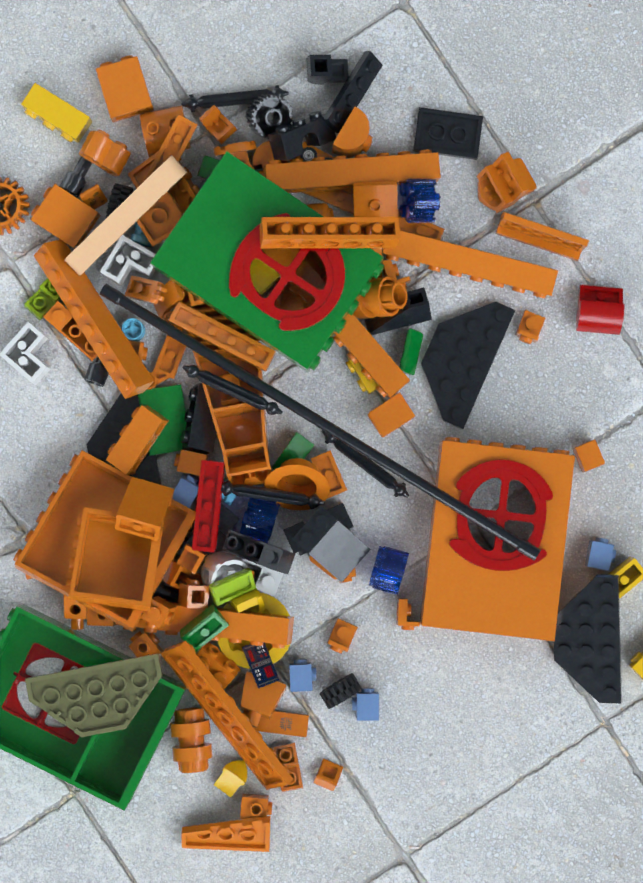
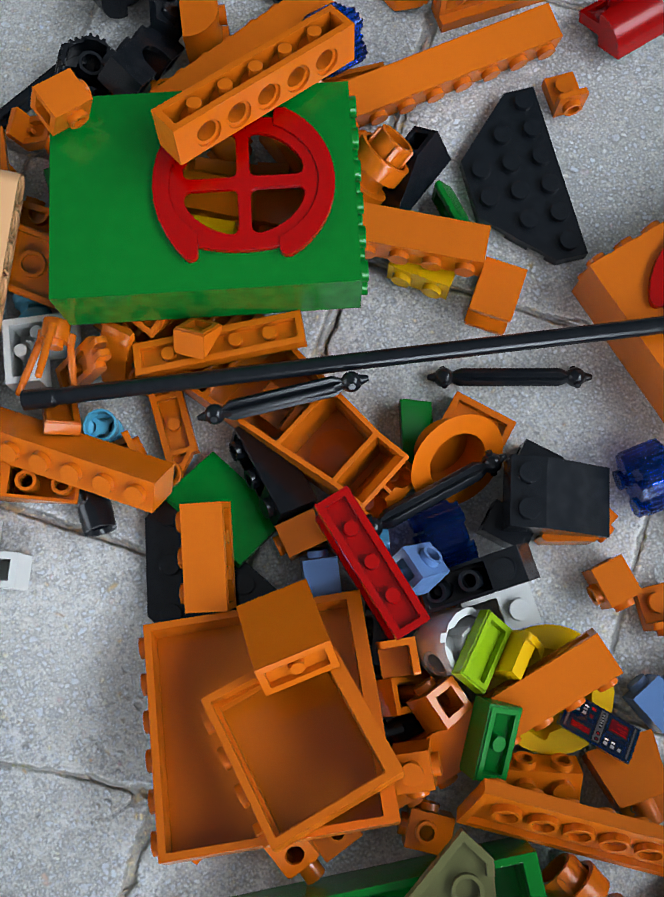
camera: 35 degrees left, 10 degrees down
(114, 314) = (62, 420): none -> orange tile
(141, 267) = (52, 336): none -> orange plant
(212, 325) = (196, 337): none -> orange slope
(228, 168) = (62, 102): none -> orange brick
(231, 525) = (421, 566): none -> medium blue brick
(327, 606) = (612, 584): none -> orange brick

